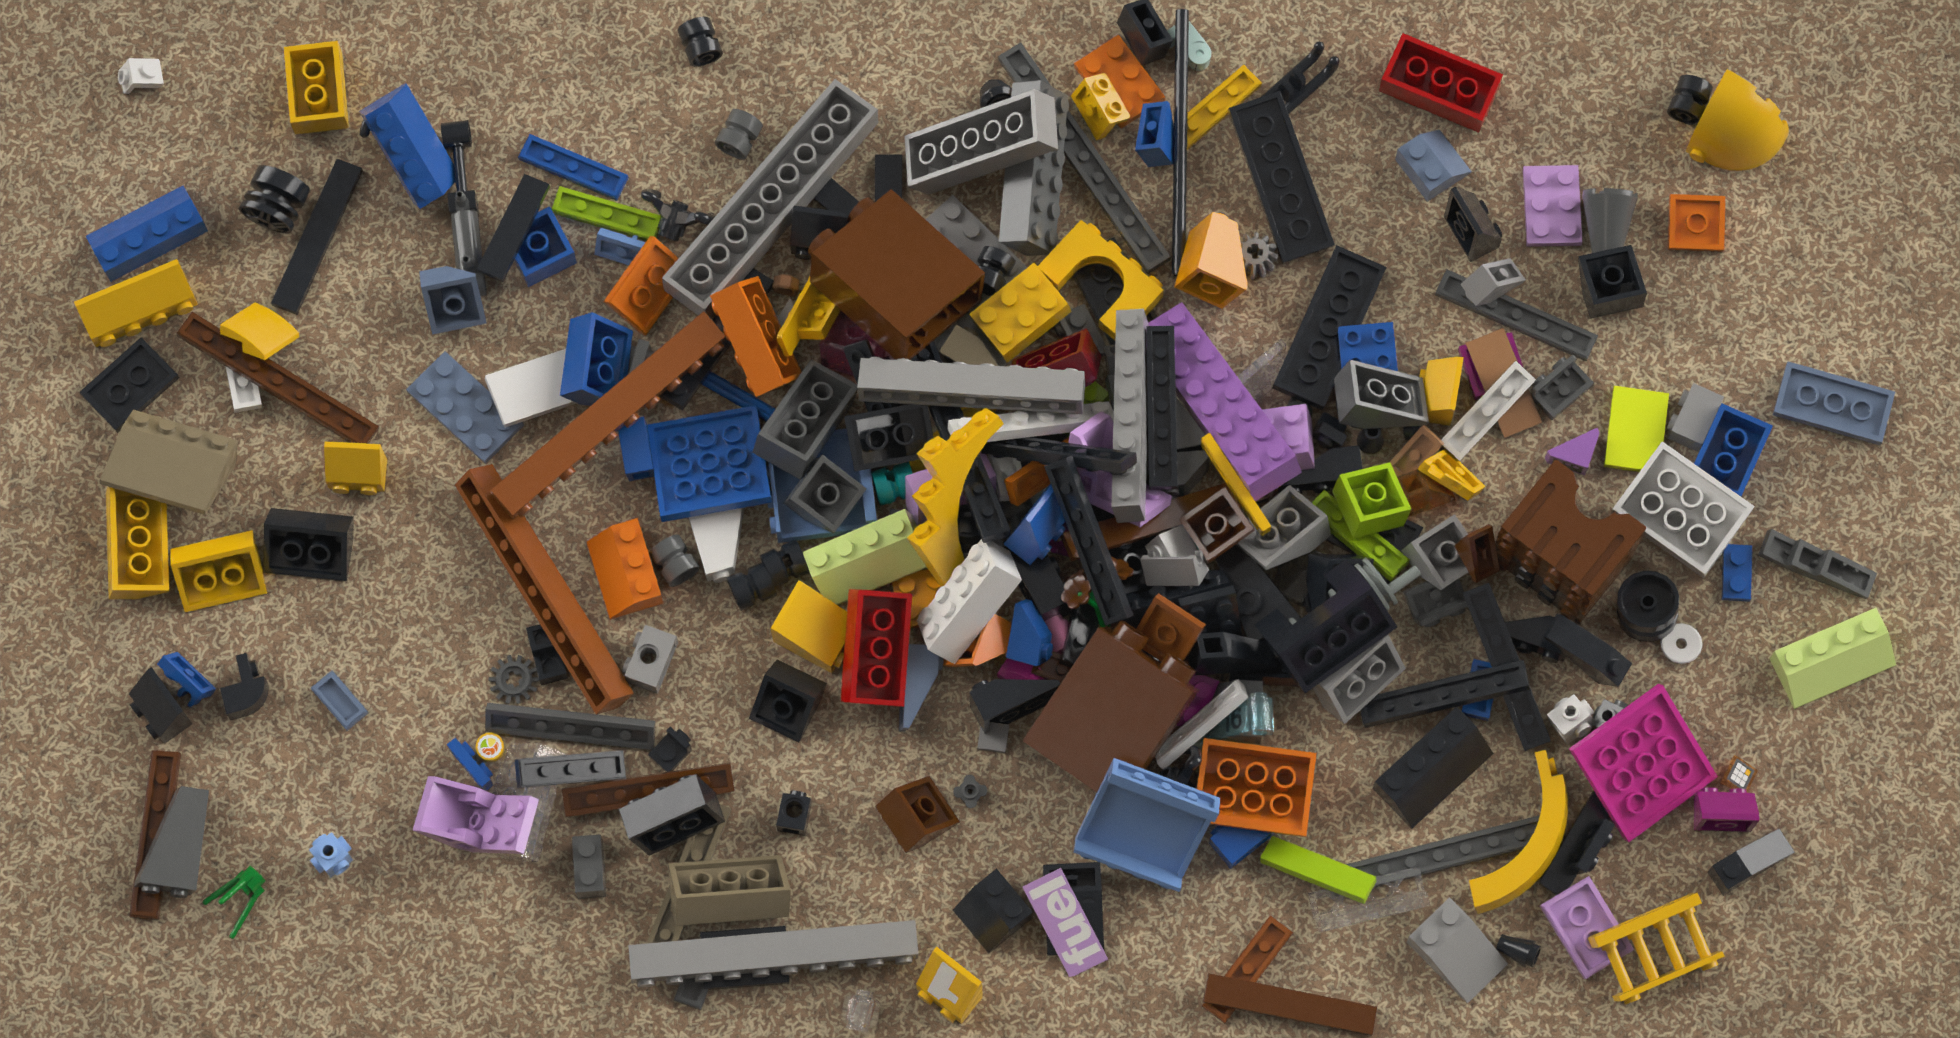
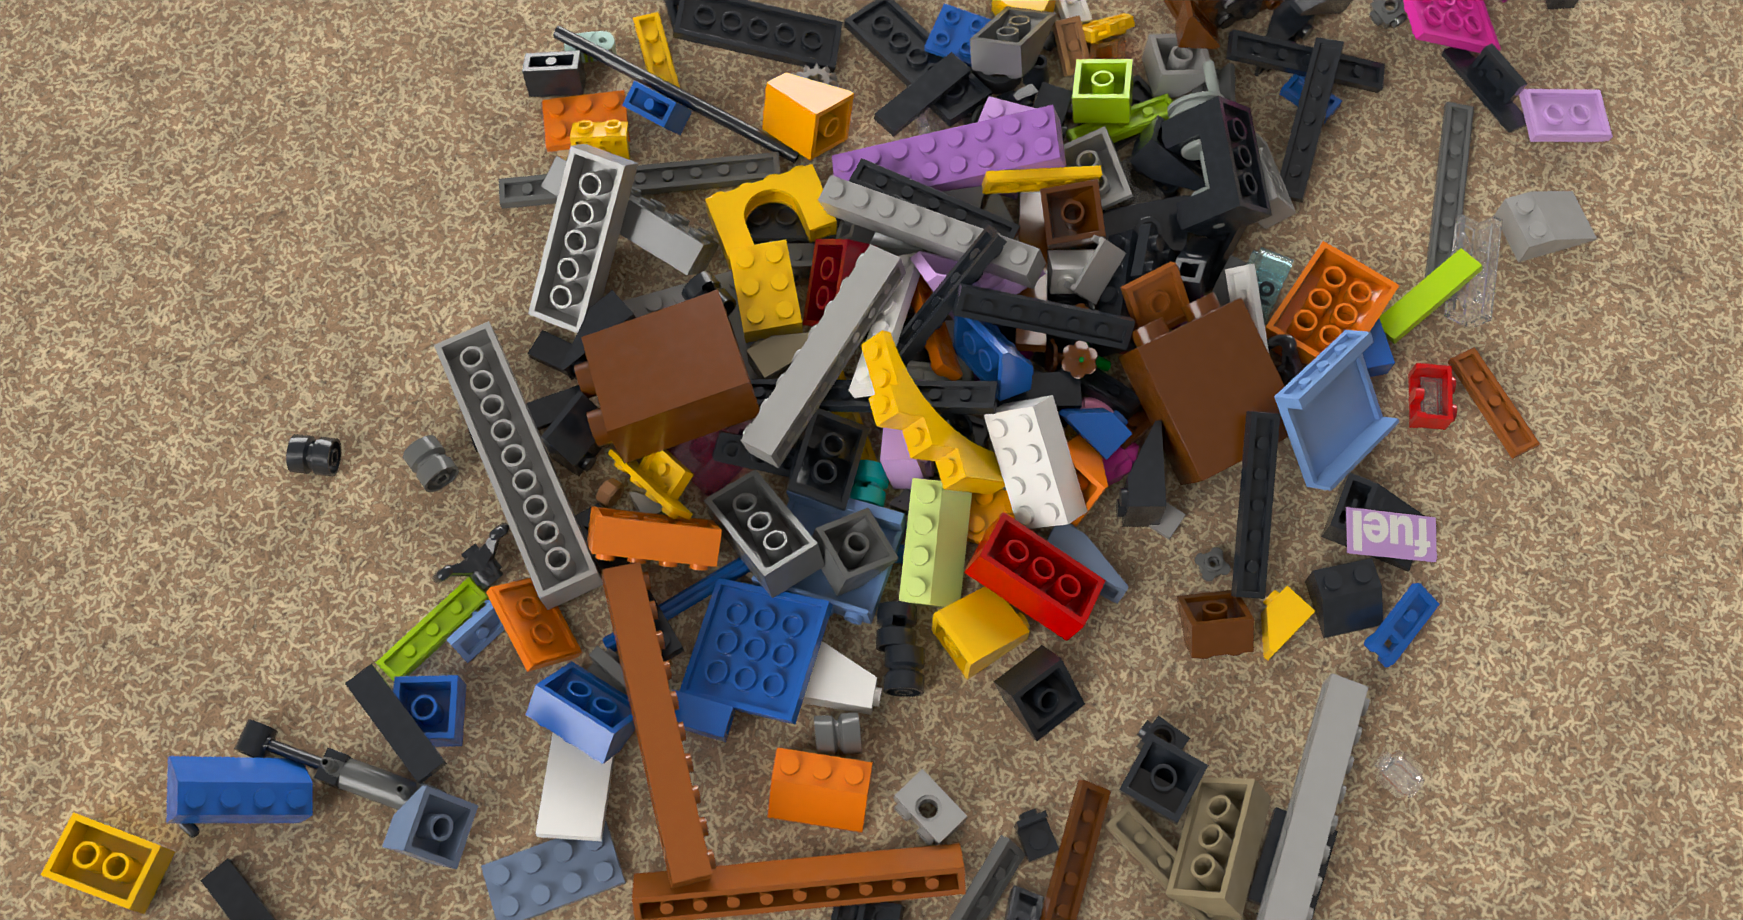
camera: 65 degrees left, 5 degrees down
(573, 167) = (363, 640): blue tile -> none
(671, 814) = (1117, 864): brick -> none
(756, 822) = (1163, 778): none -> black slope
(927, 198) = (602, 315): none -> black slope
(946, 866) = (1282, 619): none -> yellow slope
(949, 986) = (1418, 671): yellow slope -> none
(993, 92) = (536, 222): black cone -> none
(995, 965) = (1402, 624): none -> blue plate
(1026, 794) = (1255, 505): none -> black plate
(1221, 912) = (1431, 396): none -> red window
(1284, 348) = (922, 94): none -> black tile
(1289, 1004) = (1545, 381): reddish brown tile -> none
(1433, 768) = (1364, 165): black slope -> none
(1520, 950) = (1568, 172): black cone -> none
(1530, 864) = (1484, 110): yellow arch -> none
(1571, 718) = (1373, 38): white brick -> none
(1659, 919) = (1589, 77): yellow fence -> none

